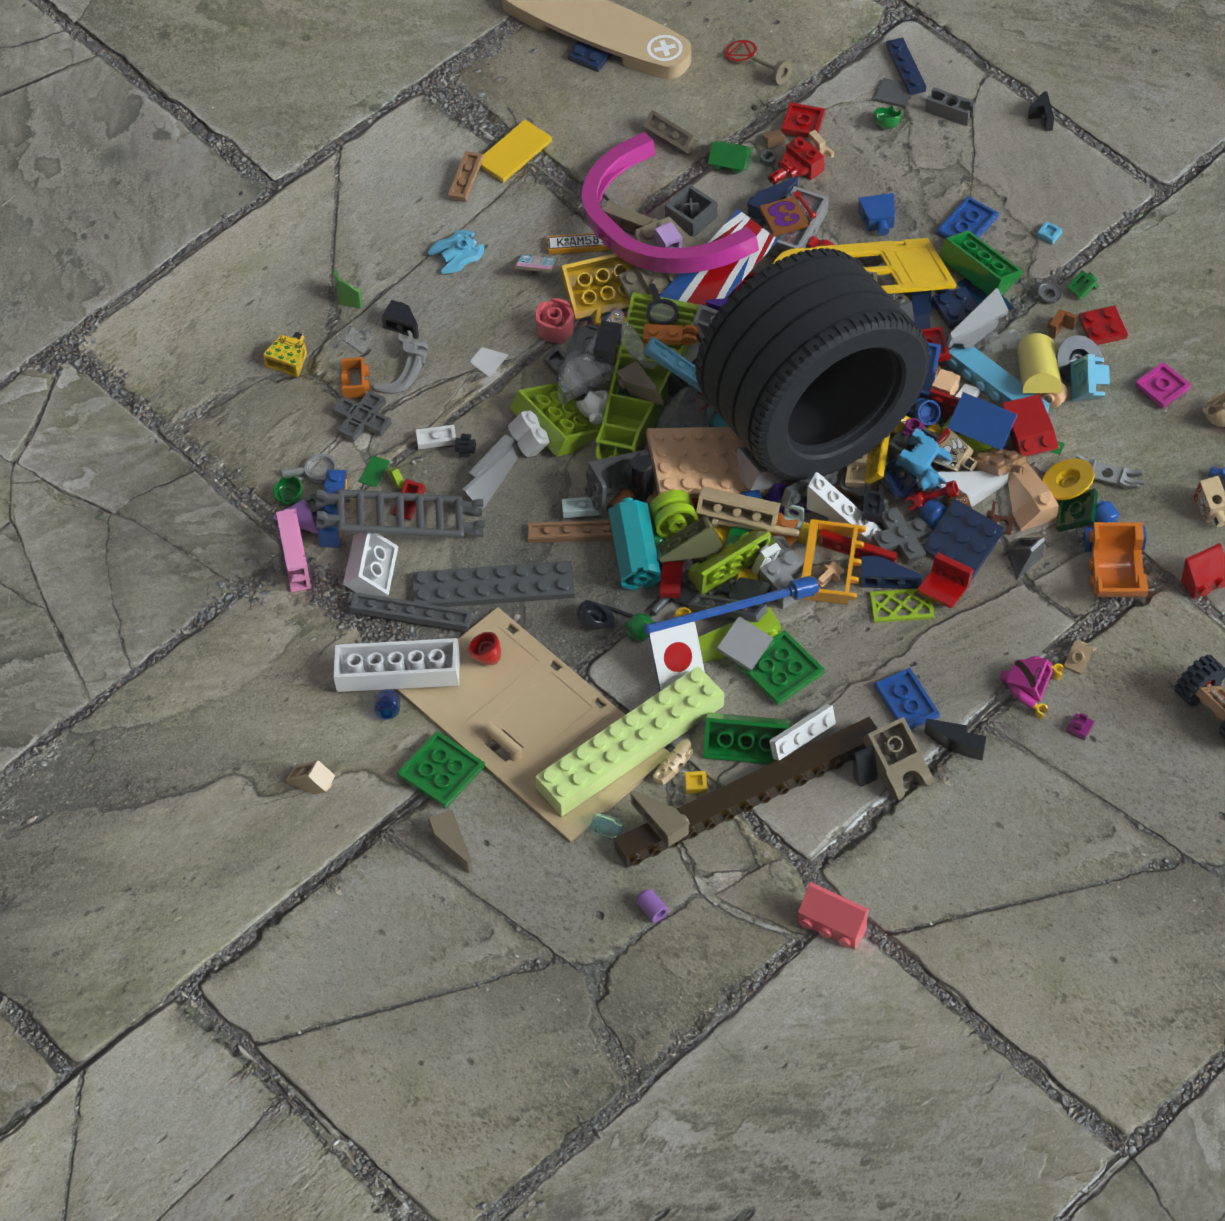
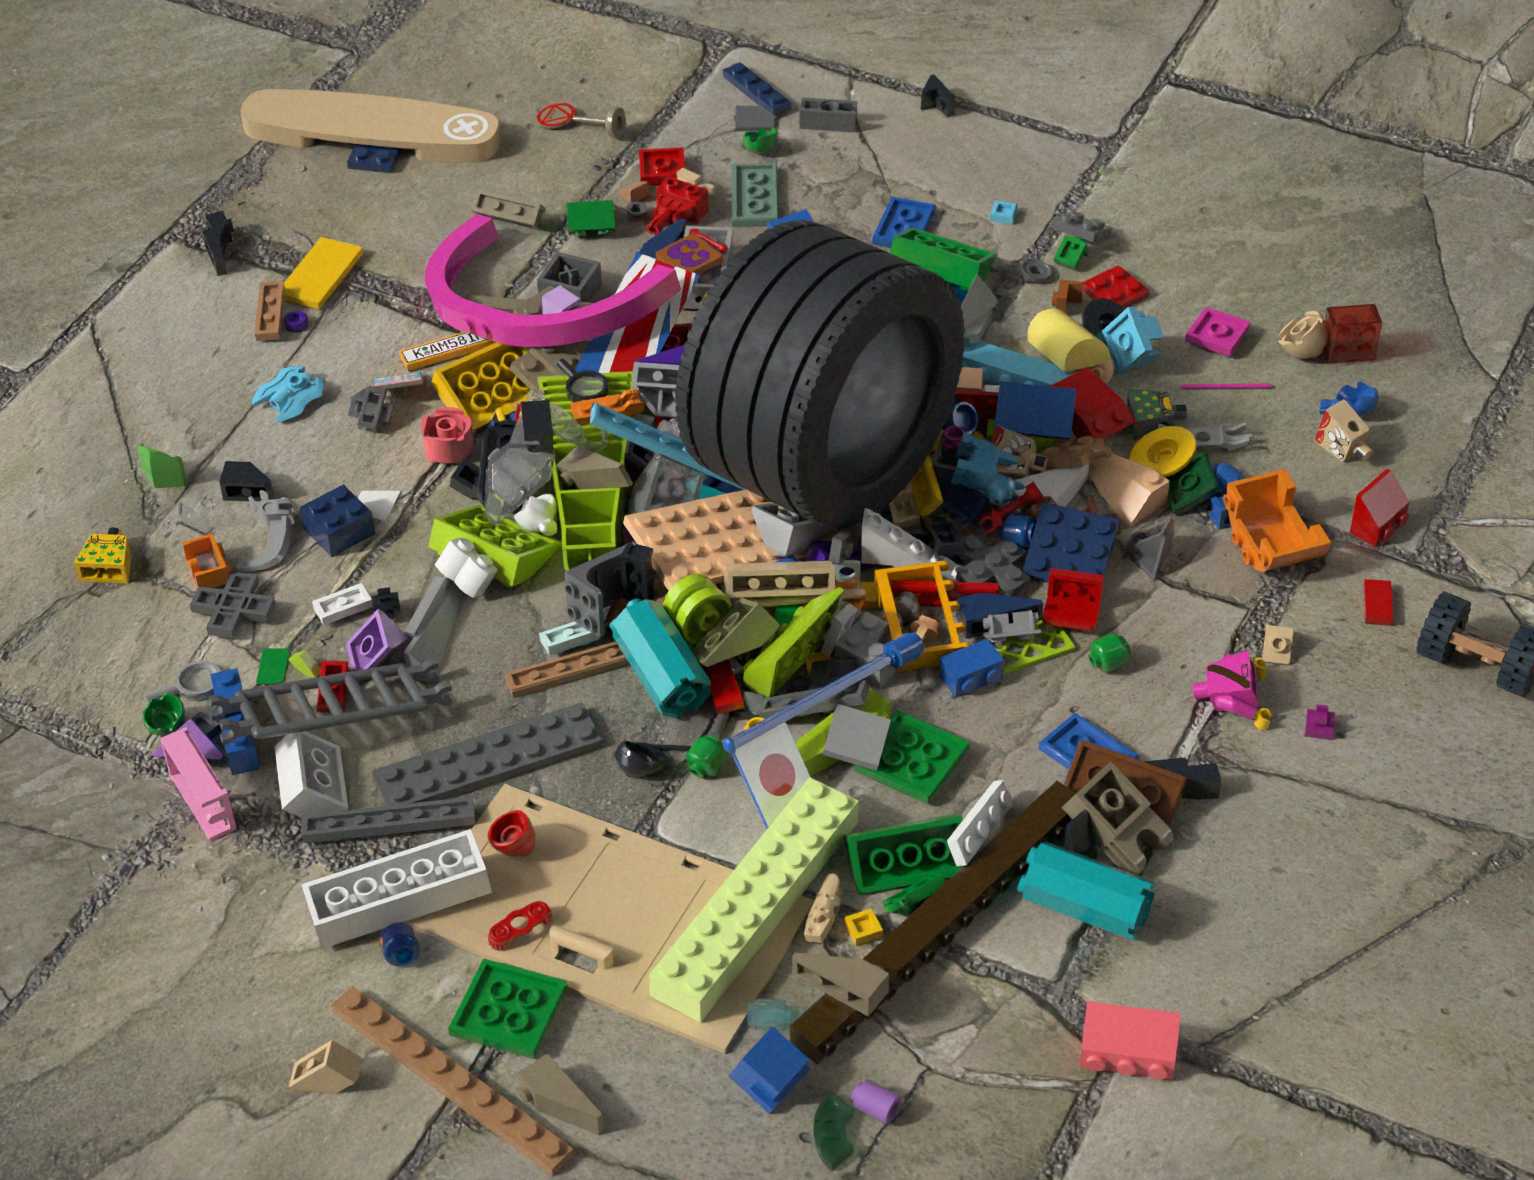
camera: 20 degrees left, 10 degrees down
(388, 808) = (453, 1081): none -> medium nougat plate
(446, 475) = (374, 642): none -> medium lavender slope
(448, 101) = (217, 238): none -> black slope
(454, 369) = (337, 520): none -> dark blue brick
(456, 716) = (504, 932): none -> red piece
(482, 189) = (296, 321): none -> dark purple tile
(507, 281) = (370, 404): none -> flat silver piece
(591, 864) = (770, 1069): none -> blue plate
(615, 915) = (830, 1133): none -> clear green tile
(731, 771) = (905, 899): none -> green hinge
(824, 553) = (907, 608): none -> dark grey animal
(851, 612) = (971, 668): none -> blue brick
(853, 802) = (1087, 890): none -> teal brick
(864, 165) = (754, 194): none -> sand green tile
(899, 591) = (1000, 627): none -> light grey hinge
(931, 737) = (1156, 784): none -> reddish brown tile
(953, 629) = (1109, 652): none -> green head
(1078, 440) = (1151, 409): none -> dark grey torso
(1100, 264) = (1077, 225): none -> dark grey plate
(1148, 433) = (1225, 386): none -> dark pink axle
(1171, 644) = (1378, 602): none -> red tile

